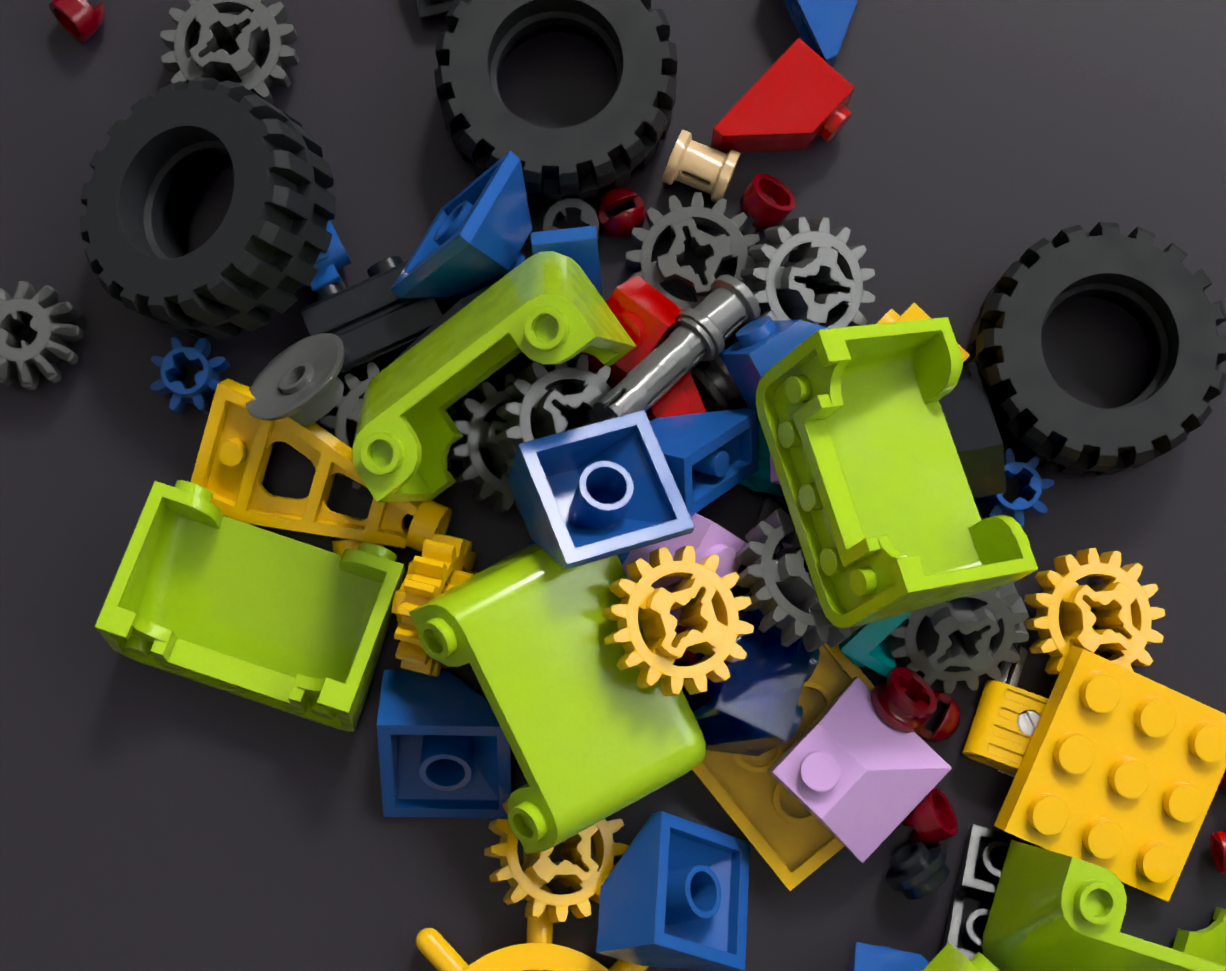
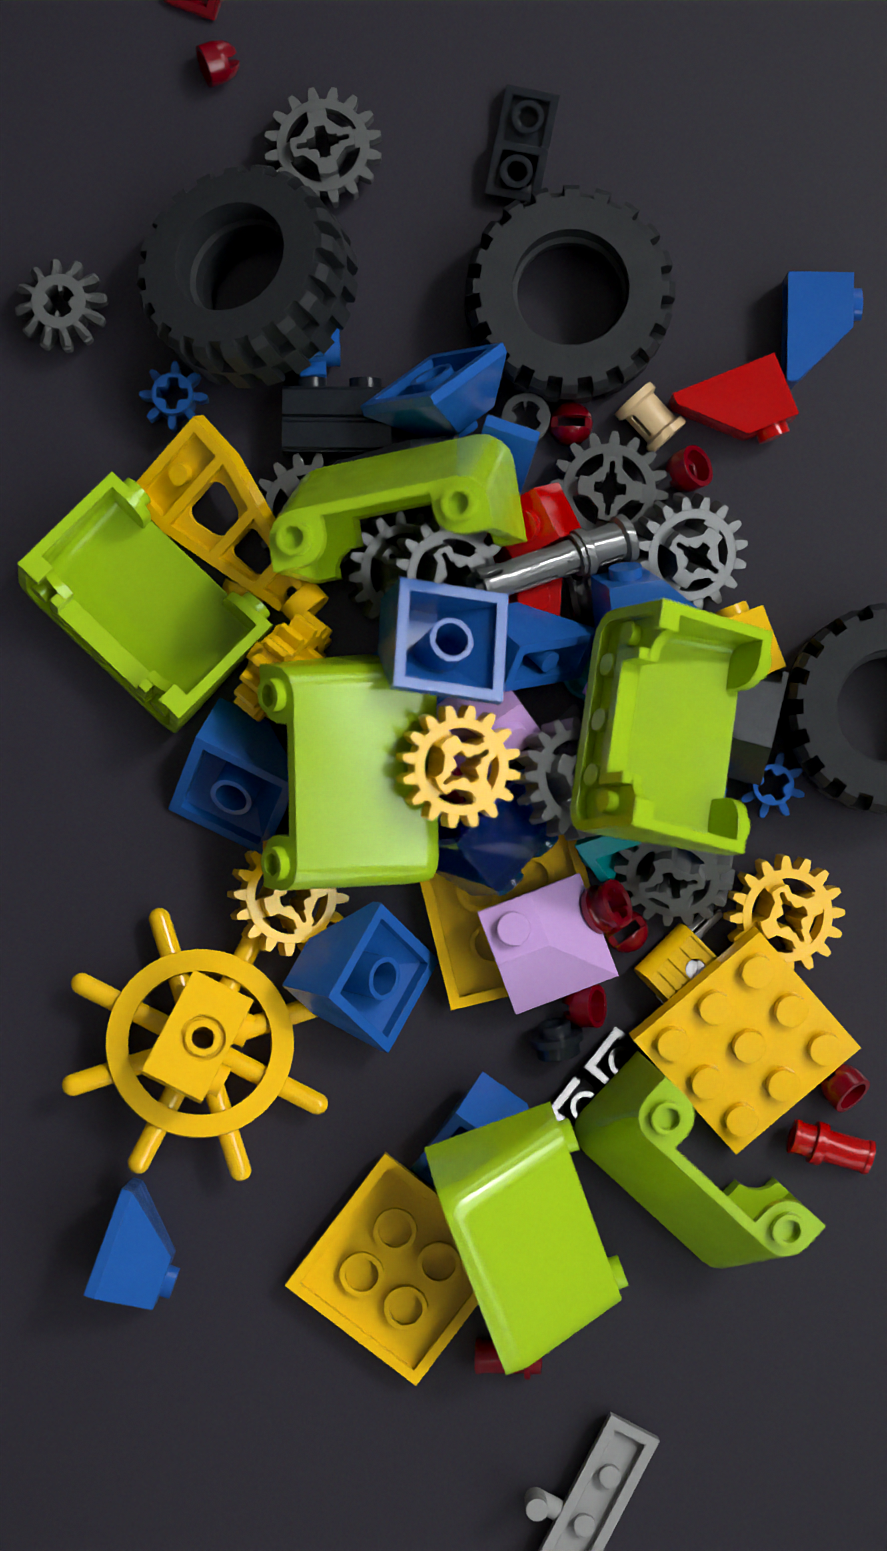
camera: 20 degrees right, 5 degrees up
(300, 381) = (257, 444): dark grey piece -> none

